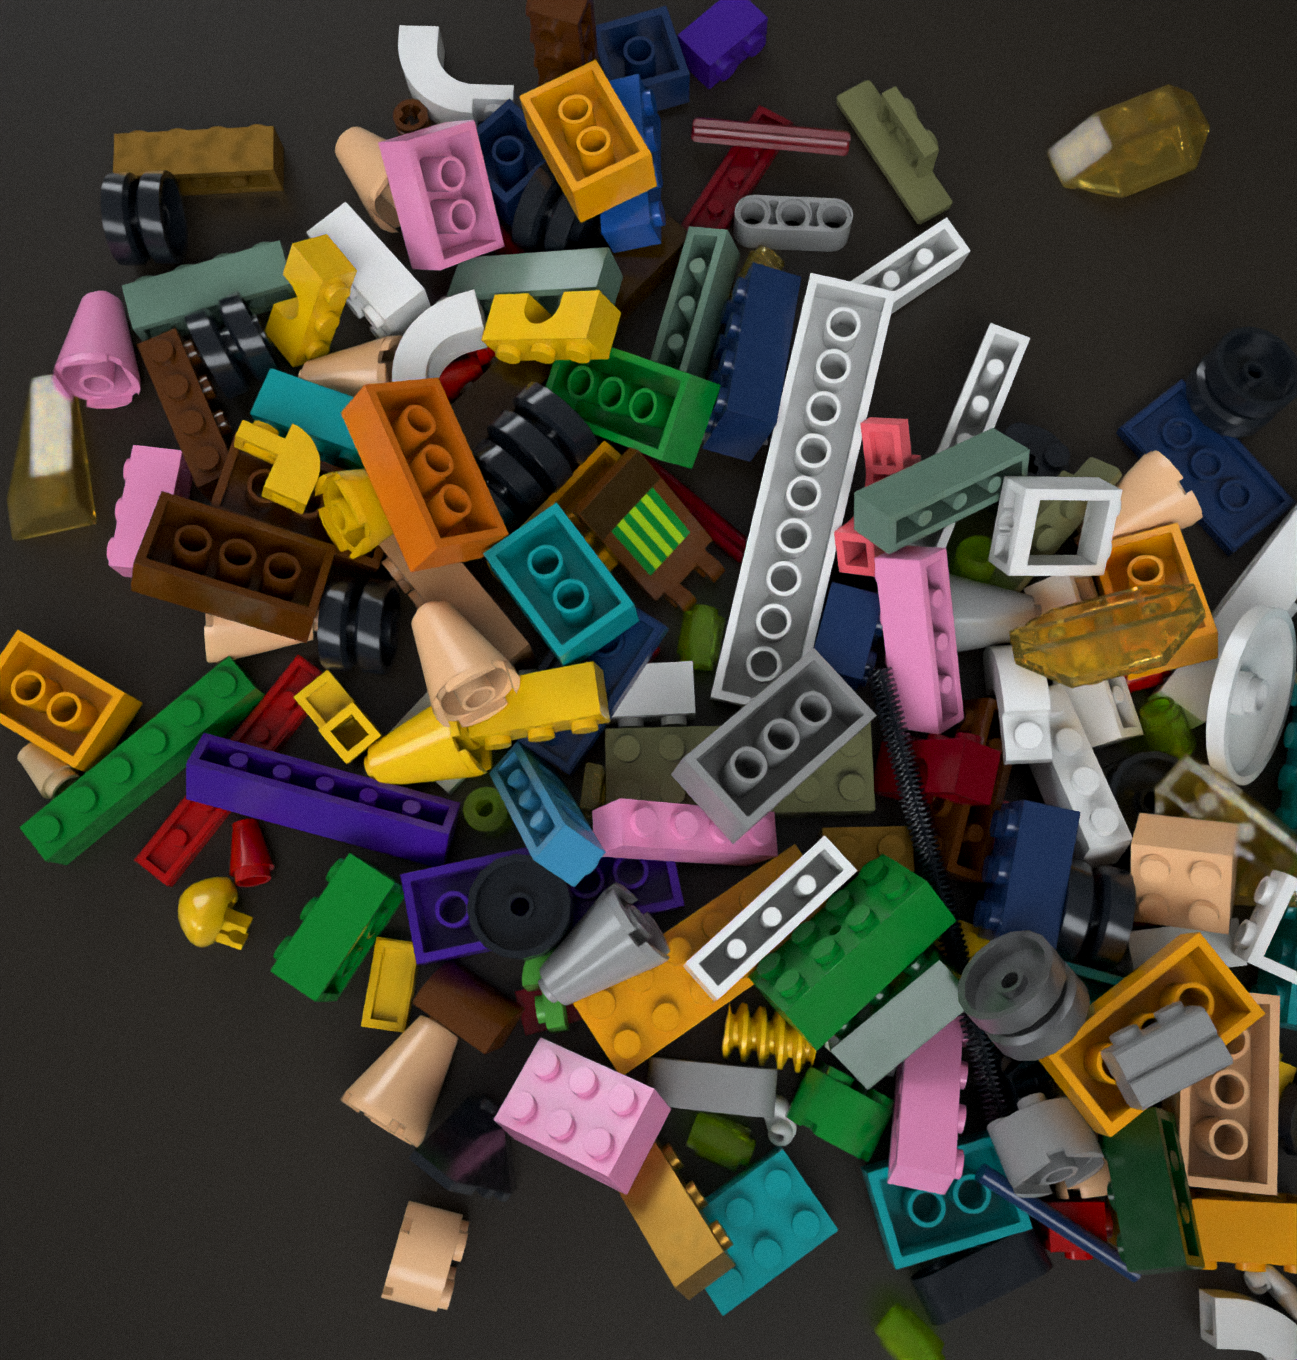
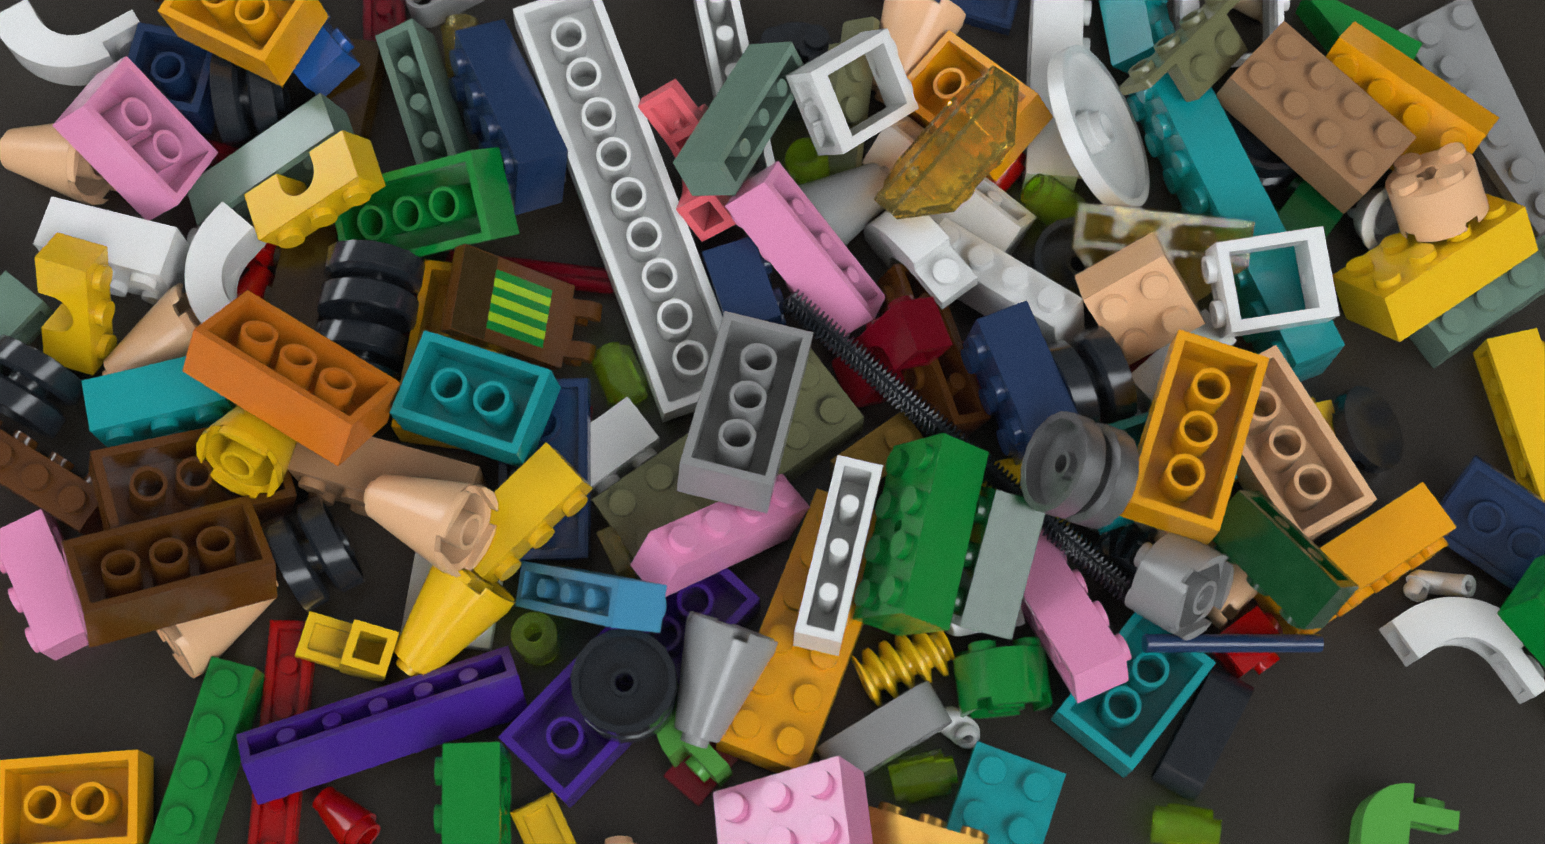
camera: 40 degrees left, 5 degrees down
(293, 460) = (162, 442): yellow brick -> none
(408, 108) = (48, 84): reddish brown bush -> none
(469, 1006) = (633, 811): reddish brown brick -> none
(1165, 1055) = (1215, 438): light grey brick -> none

